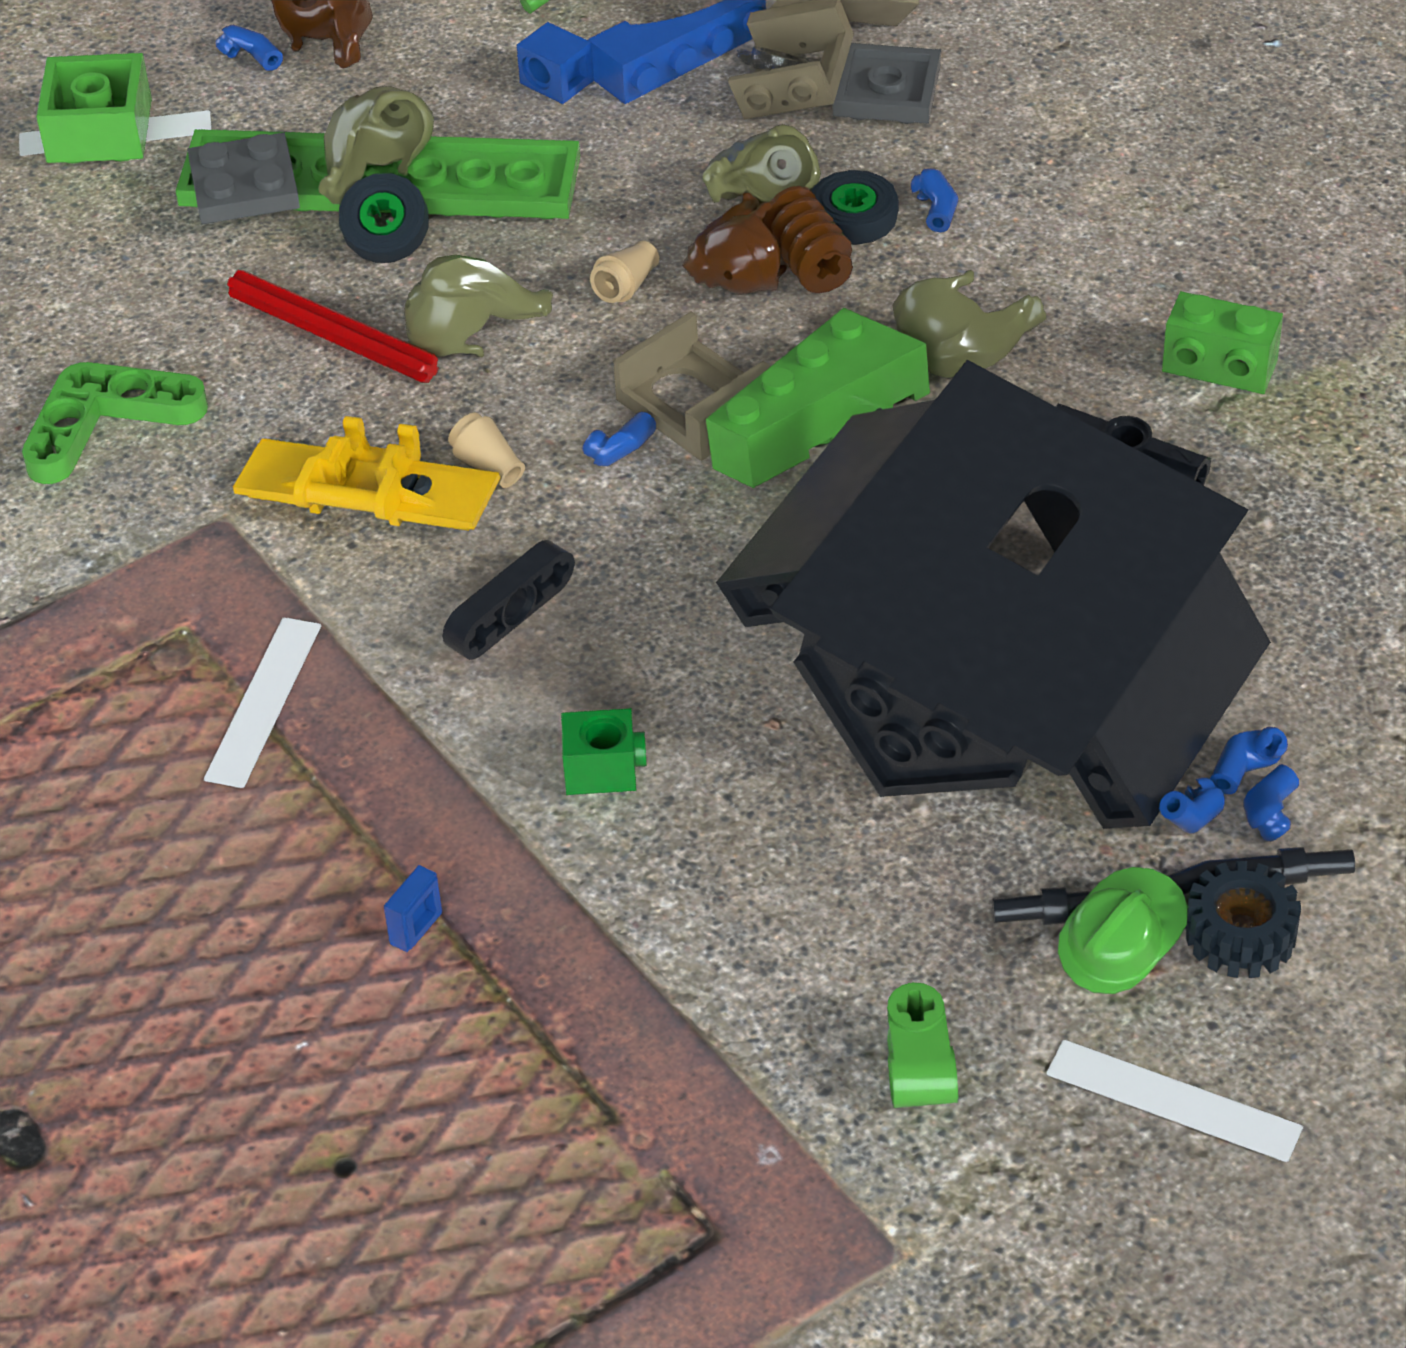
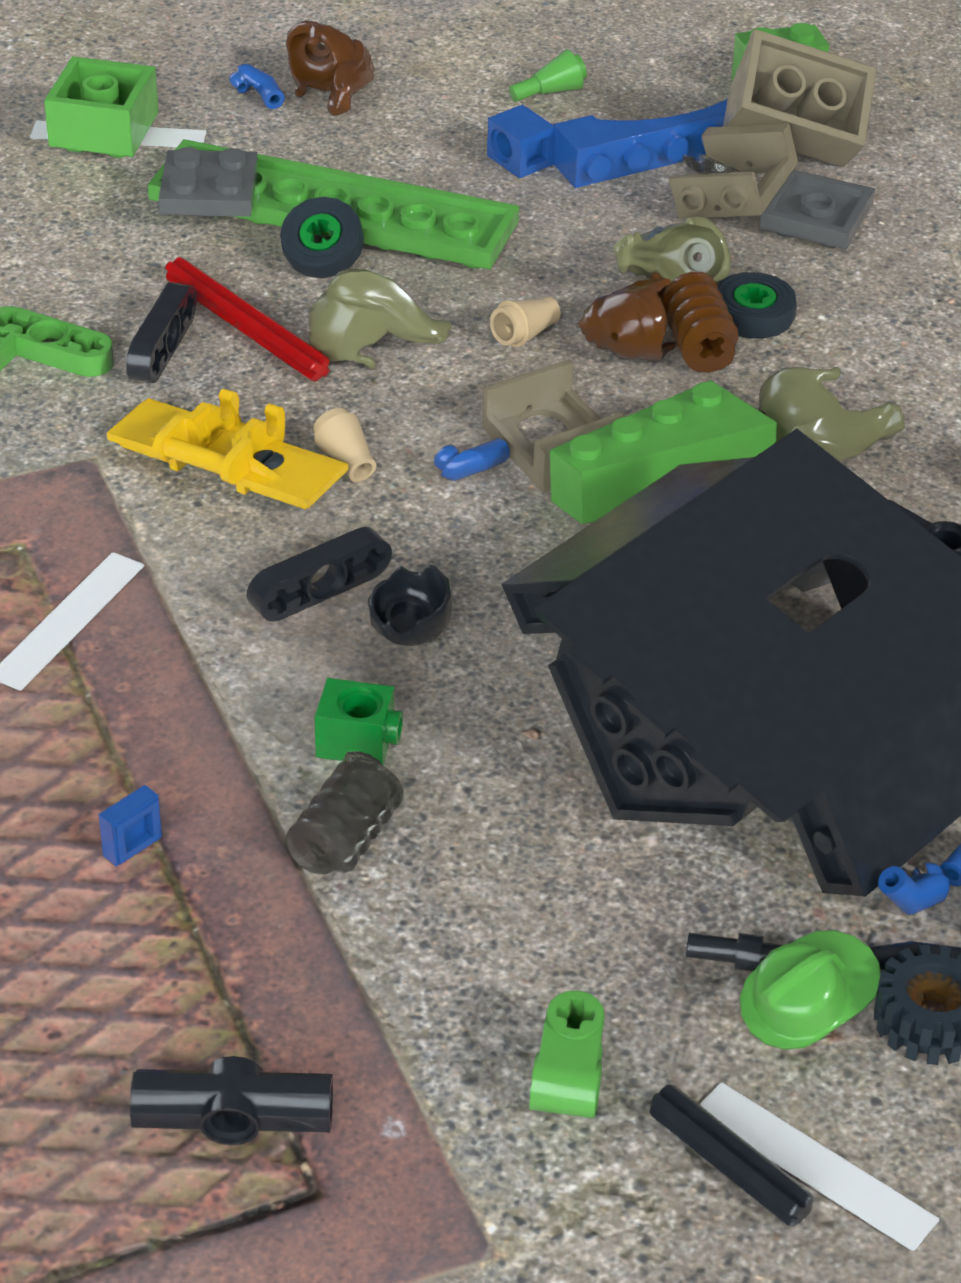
camera: 10 degrees right, 5 degrees down
(250, 361) = (161, 332): none -> black beam
(373, 130) = (333, 161): olive piece -> none
(610, 1164) = (231, 1100): none -> black piece
(614, 615) = (411, 605): none -> black hair
(623, 852) = (345, 815): none -> clear smoke piece
(944, 199) = (840, 312): blue arm -> none
(1096, 1109) = (731, 1155): none -> black axle

